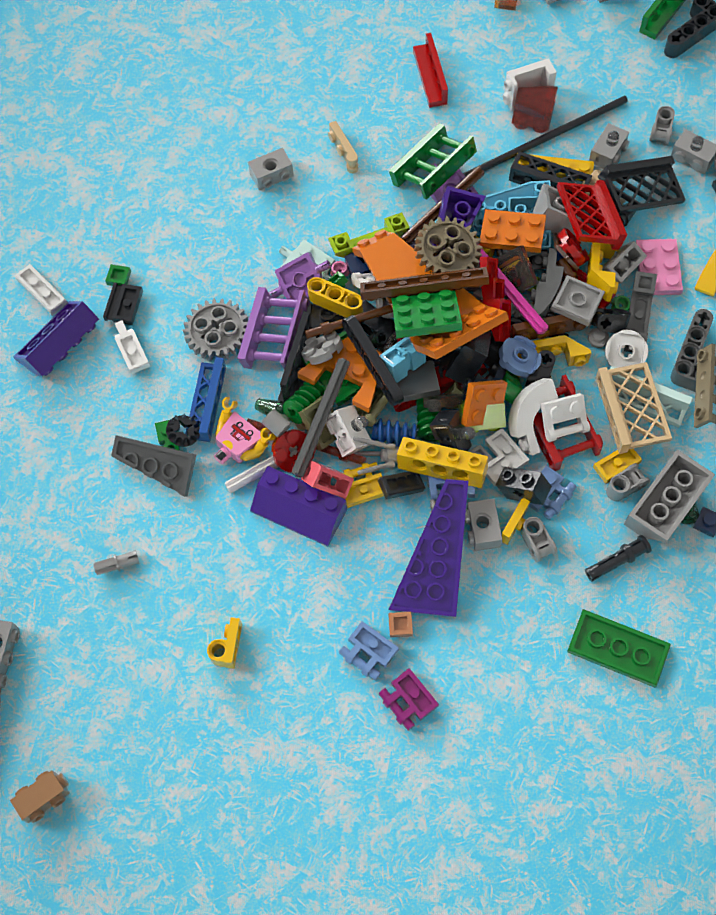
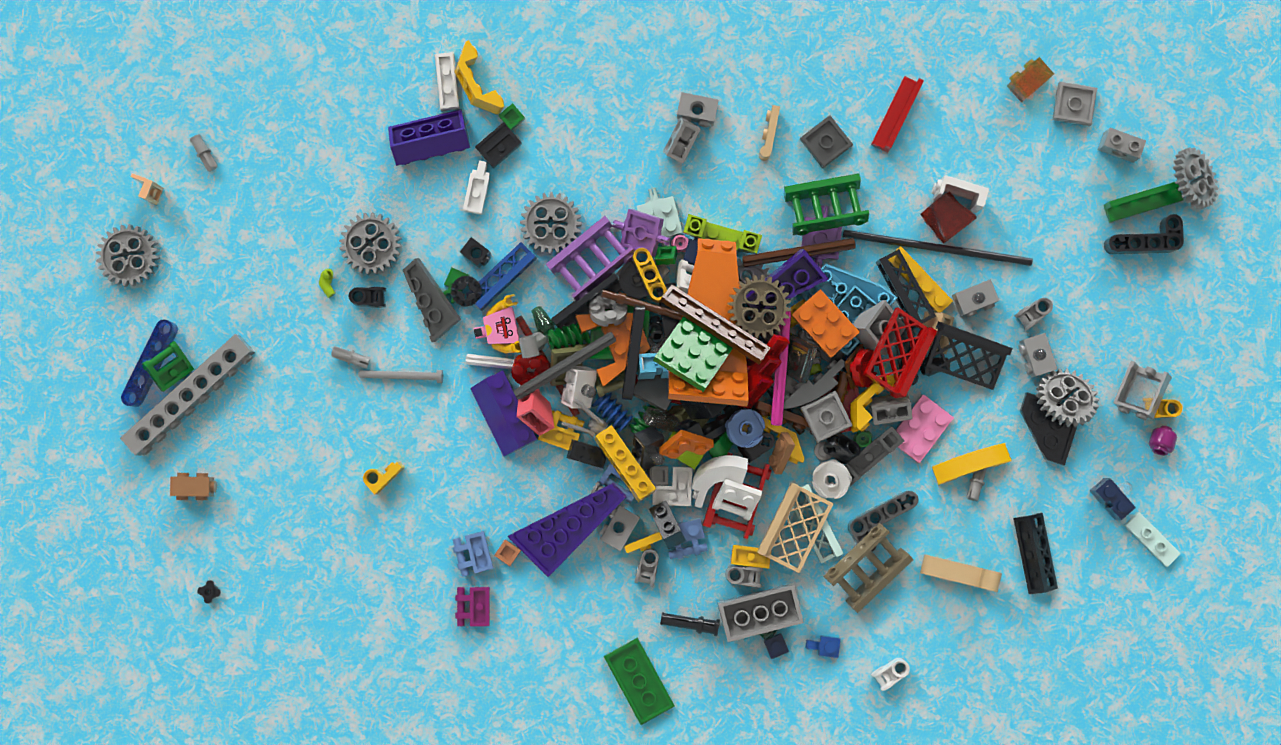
camera: 35 degrees right, 20 degrees up
(45, 518) = (325, 282): none -> lime arm
(64, 455) = (360, 230): none -> light grey gear
(87, 277) = (490, 101): none -> yellow slope
(96, 499) = (369, 297): none -> black piece
(137, 889) = (215, 592): none -> black plate
(163, 389) = (472, 245): none -> black brick
(212, 520) = (402, 375): none -> light grey bar
(276, 193) = (681, 140): none -> light grey brick
(393, 127) = (826, 141): none -> dark grey tile
(567, 357) = (781, 453): none -> medium nougat plate

